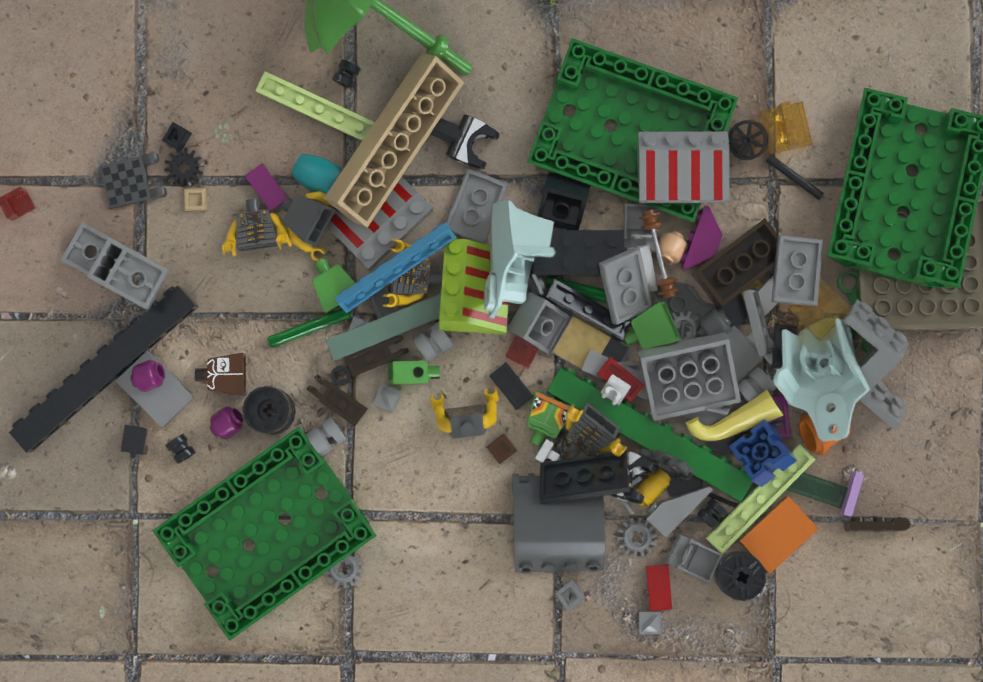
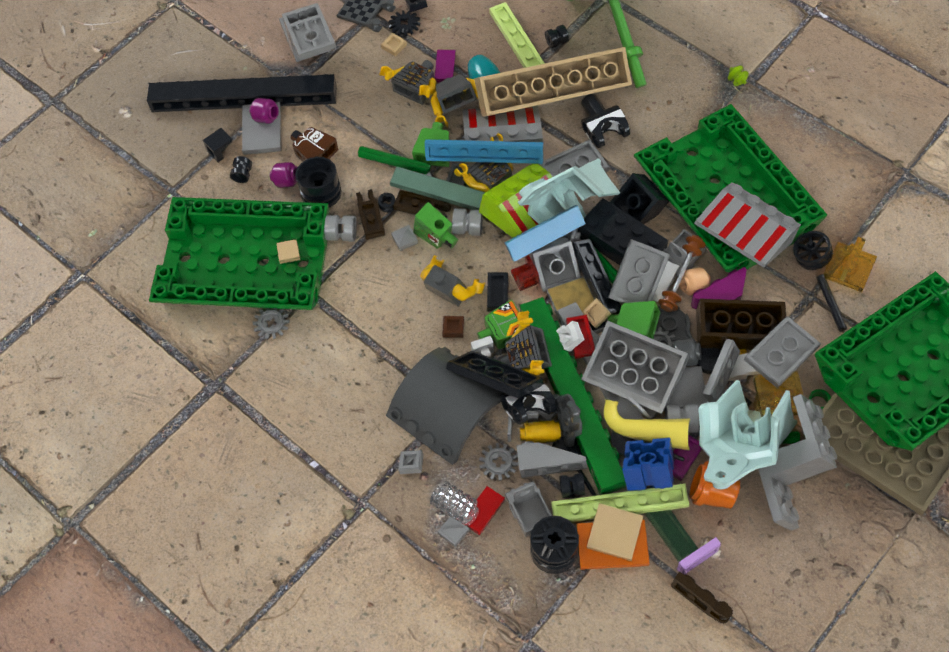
camera: 45 degrees right, 25 degrees down
(303, 497) = (288, 251): none -> tan tile
(518, 310) = (545, 233): none -> dark azure tile
(614, 345) = (596, 313): none -> tan tile
(637, 604) = (455, 503): none -> clear piece
(776, 527) = (615, 532): none -> tan tile

